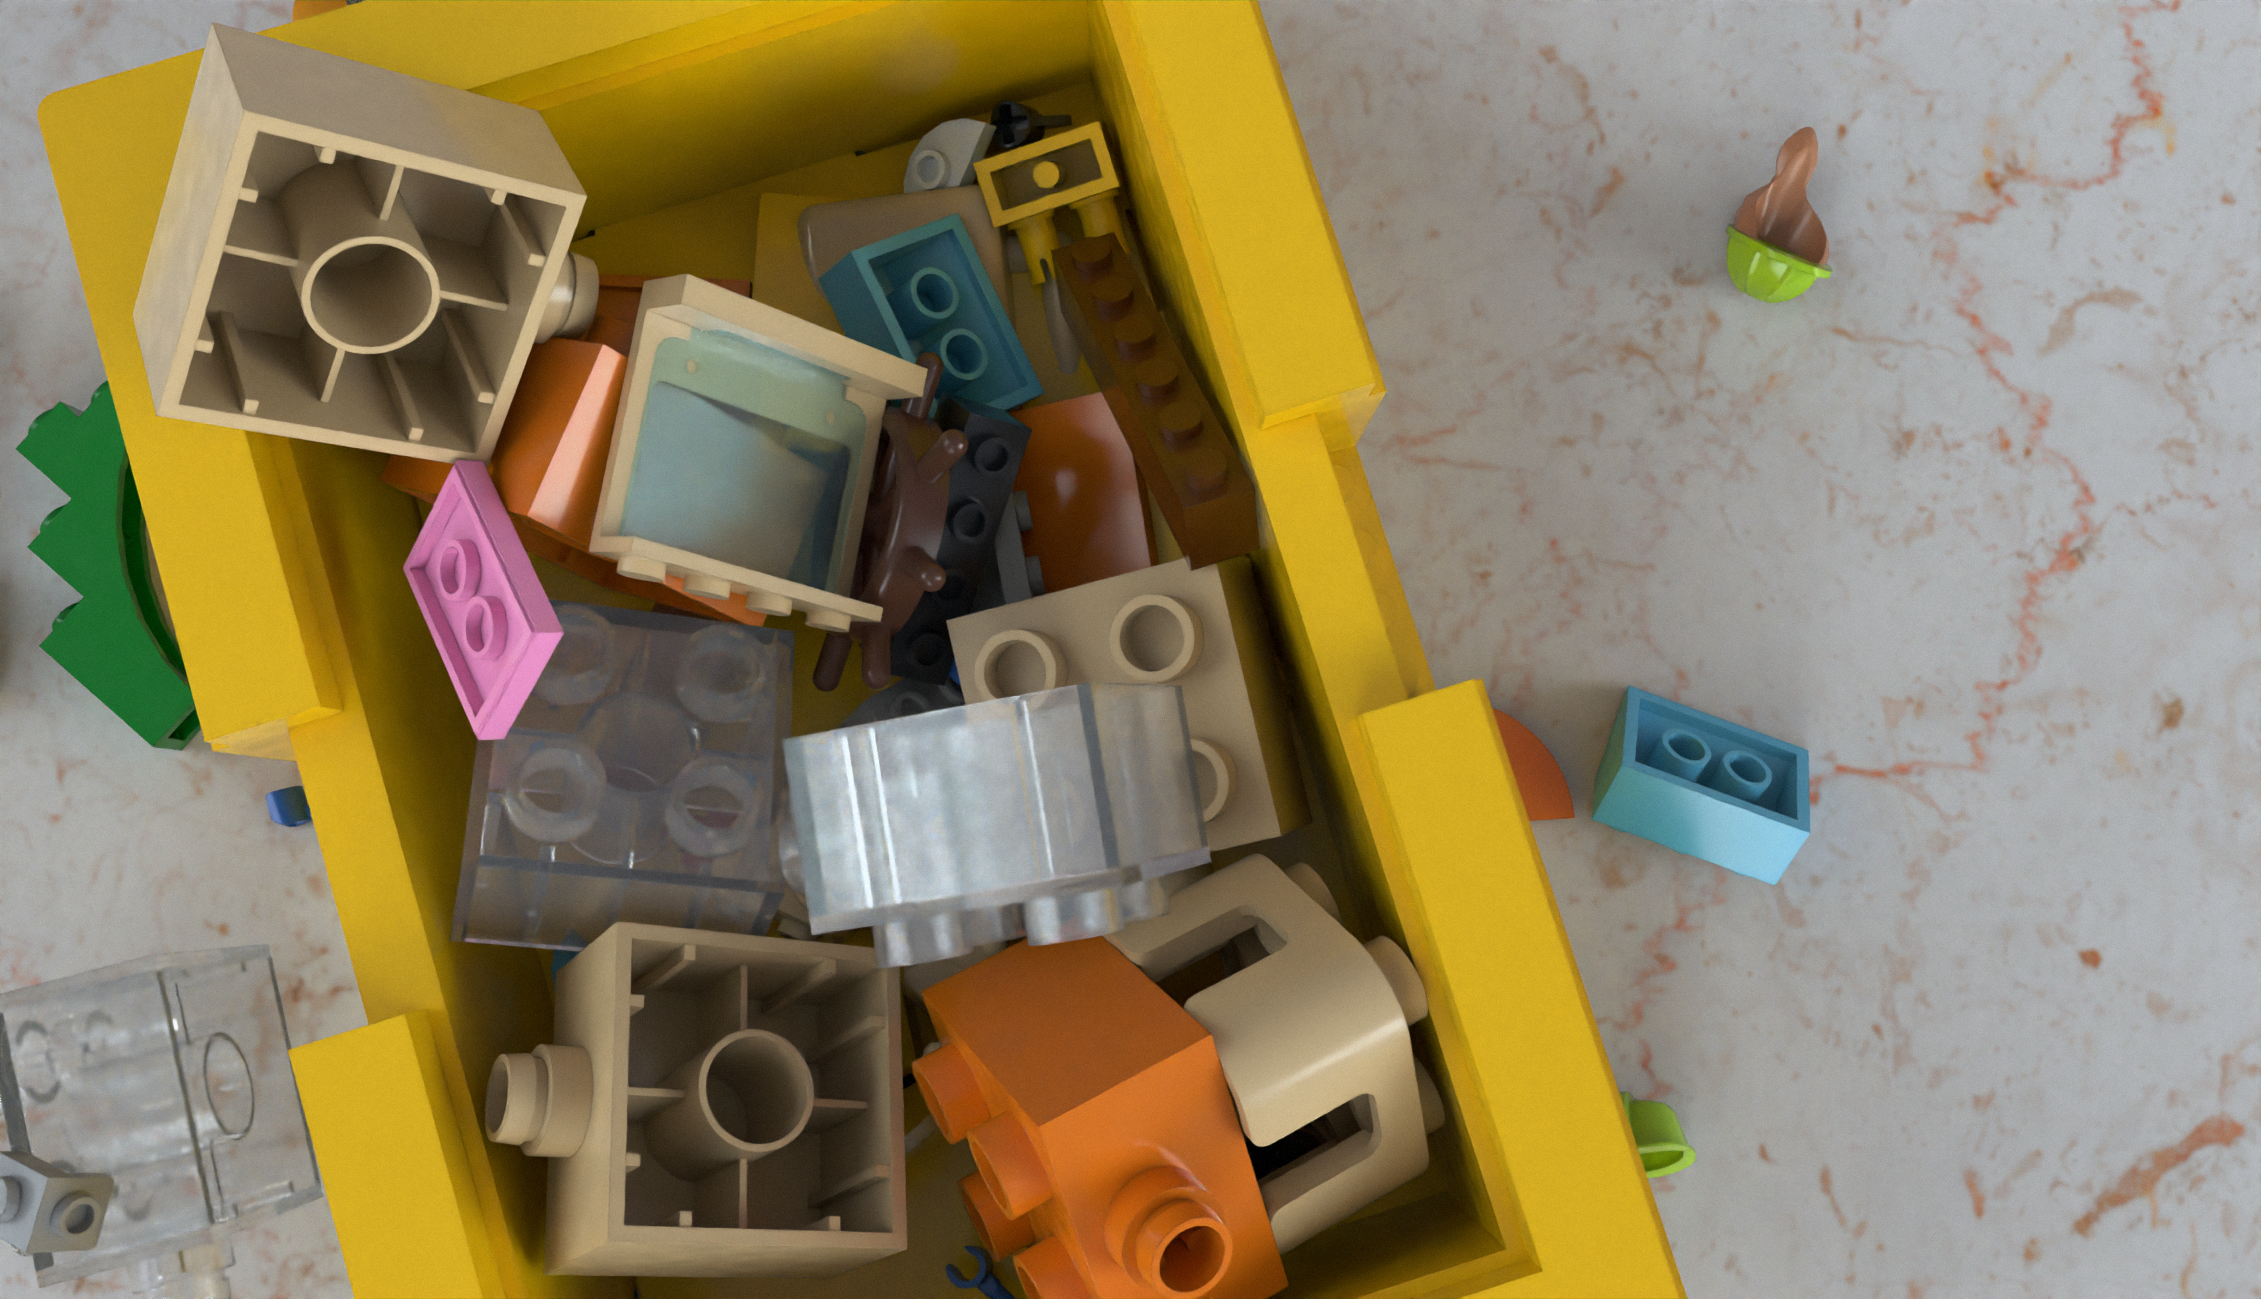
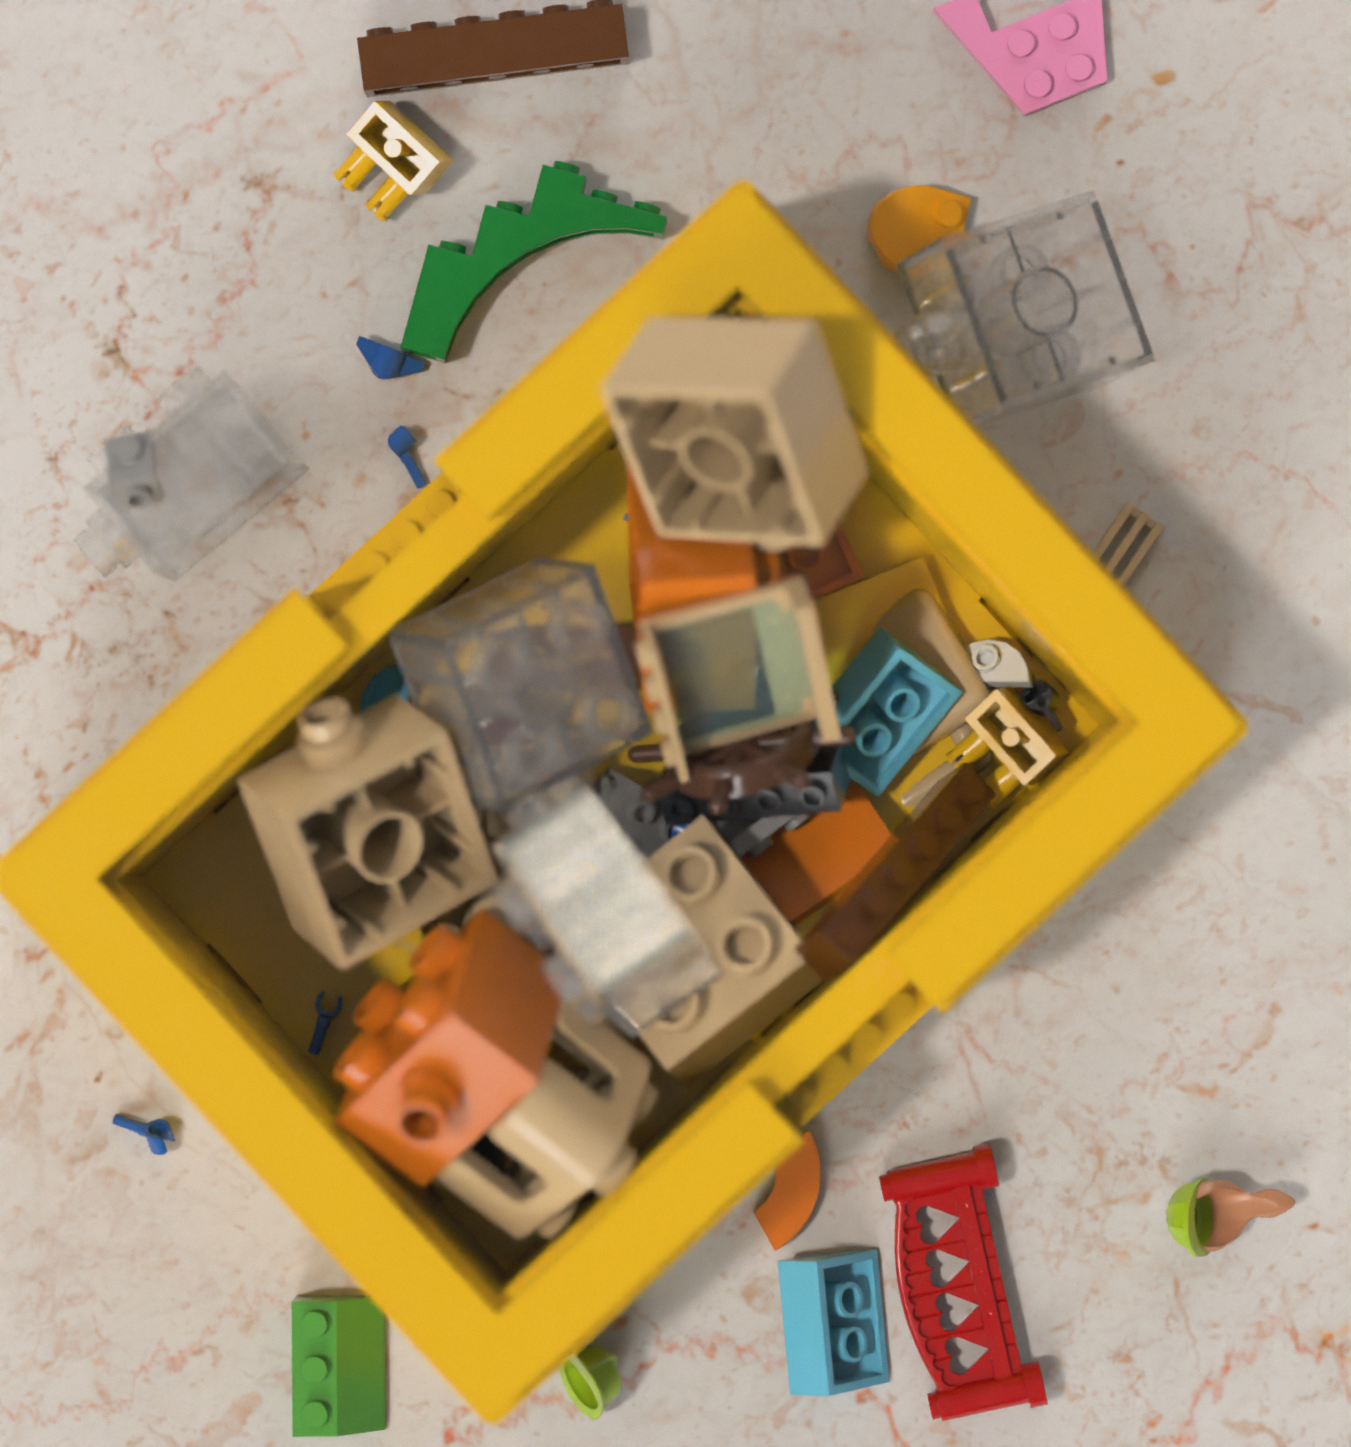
camera: 70 degrees right, 5 degrees up
(174, 776) = (387, 362): none -> blue piece
(482, 600) = (585, 573): bright pink tile -> none
(1865, 605) = (997, 1376): none -> red piece

